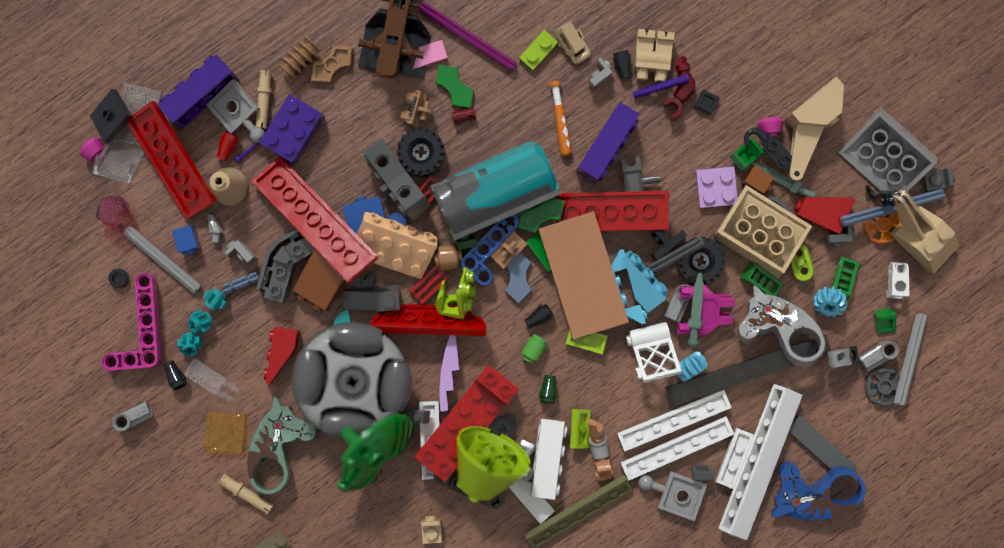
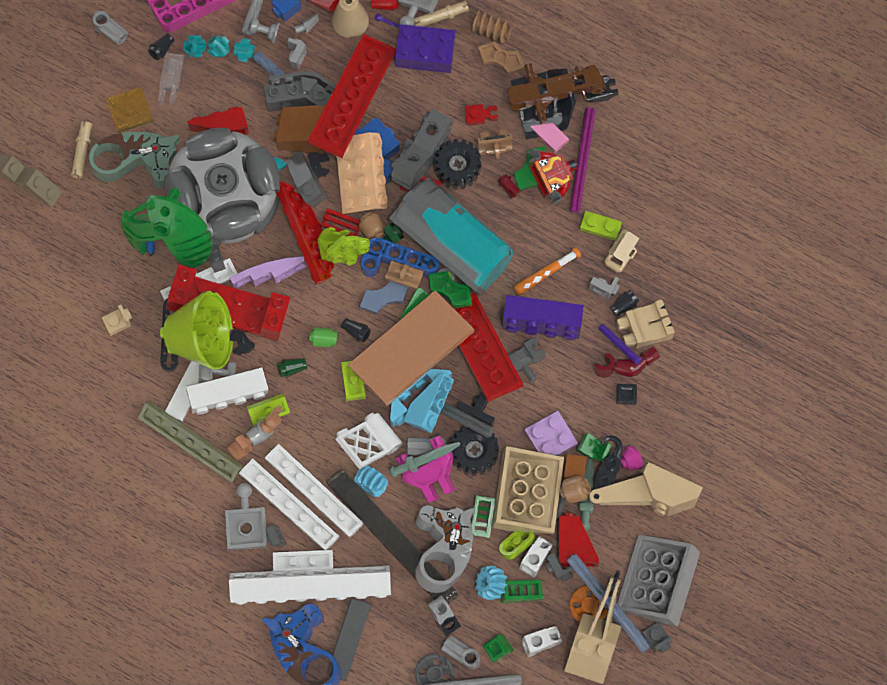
camera: 70 degrees right, 15 degrees down
(208, 265) = (271, 31): none -> light grey piece
(378, 111) = (477, 114): none -> red plate
(473, 71) = (551, 173): none -> torso
(781, 188) = (575, 489): none -> medium nougat head
(821, 250) = (536, 557): none -> white leg

